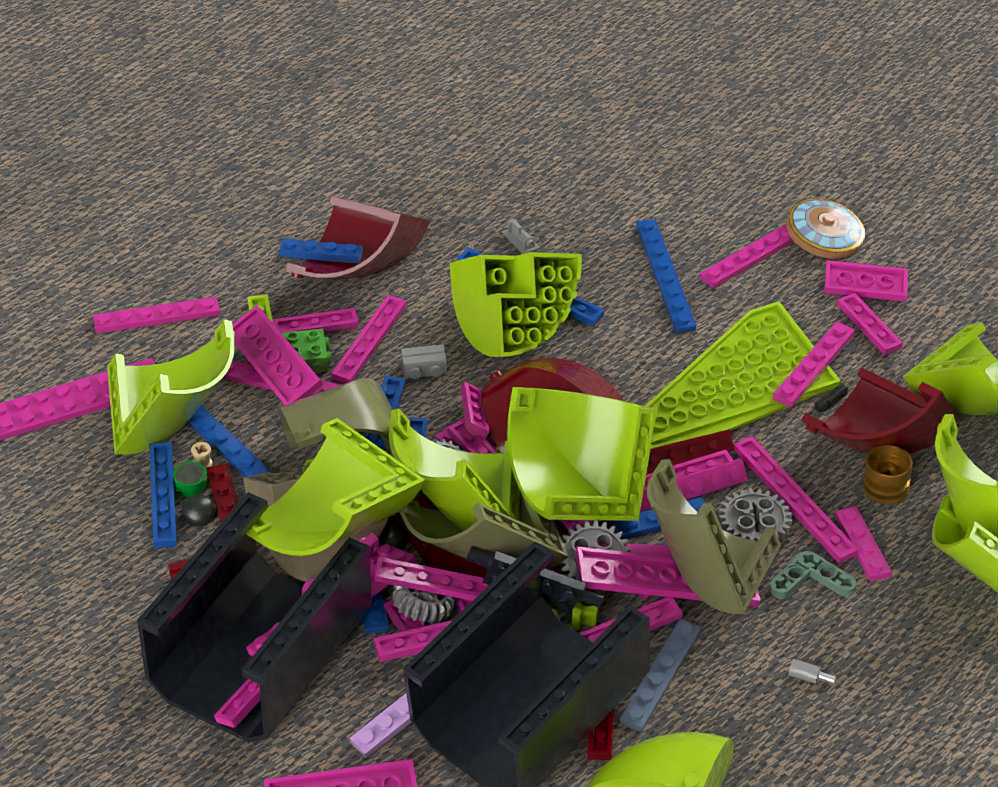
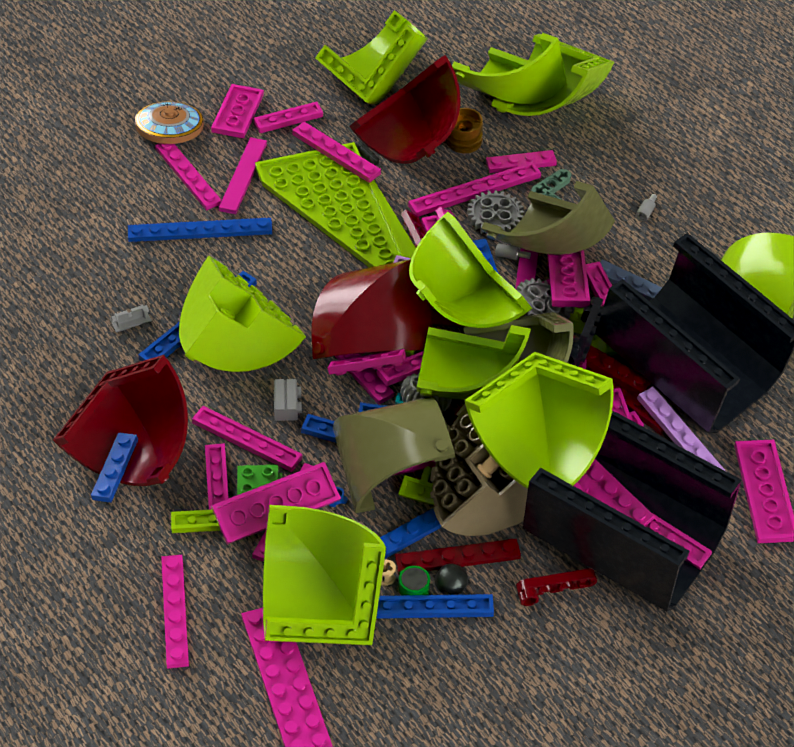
camera: 85 degrees left, 5 degrees up
(759, 297) = (242, 176): none -> dark pink tile

